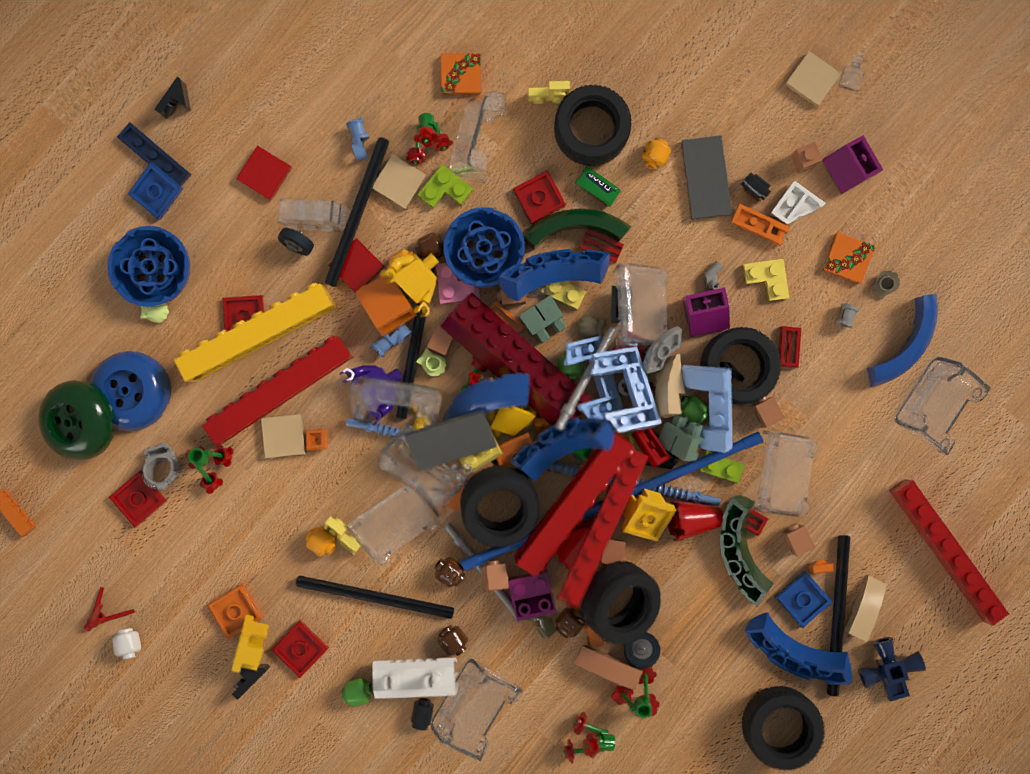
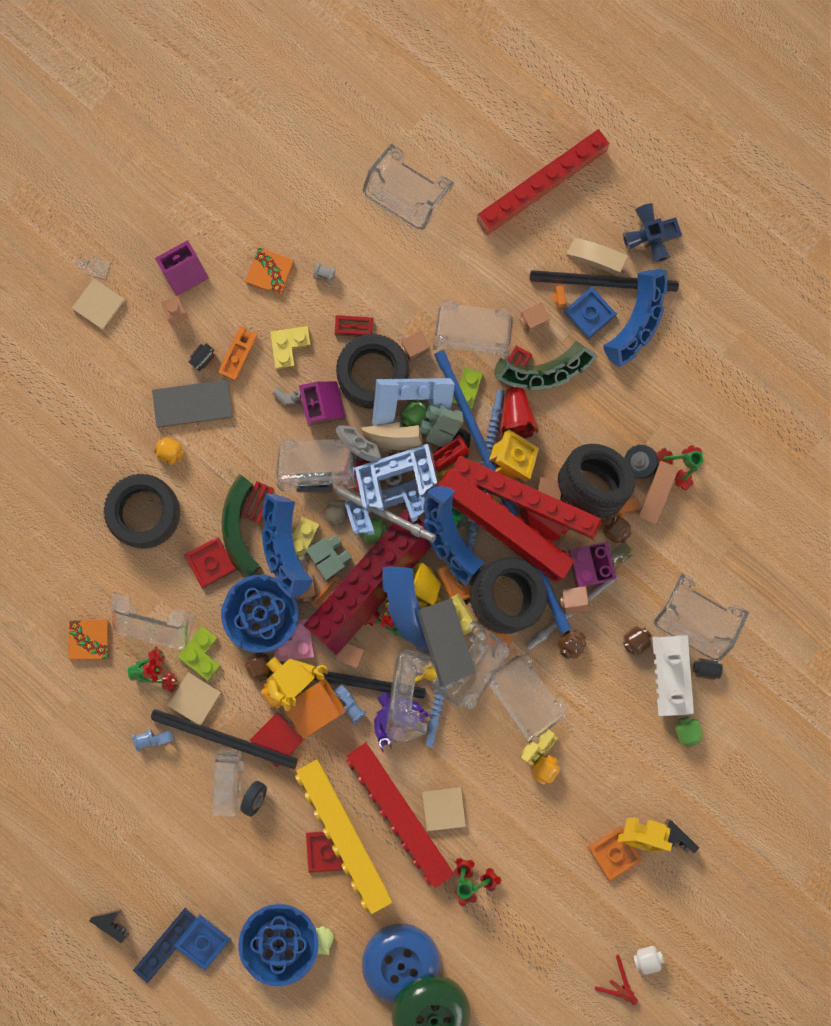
camera: 90 degrees left, 5 degrees down
(137, 499) = (507, 953): red tile -> none
(154, 457) = (464, 935): light grey piece -> none
(264, 173) = (184, 833): red tile -> none
(300, 648) = (649, 789): red tile -> none
(316, 439) = (447, 775): orange tile -> none
(375, 597) = (597, 718): black axle -> none
(432, 363) = (371, 663): yellowish green animal -> none
(540, 424) = (430, 558): orange tile -> none
(555, 92) = (109, 545): light yellow plate -> none
(592, 744) = (730, 507): plant -> none
(597, 186) = (200, 506): green slope -> none
(734, 372) = (380, 375): black bar -> none
(795, 204) = (218, 320): white wing -> none
(804, 748) = (721, 308): black tyre -> none
(886, 283) = (294, 237): dark tan animal -> none
(925, 323) = (352, 211): blue brick -> none

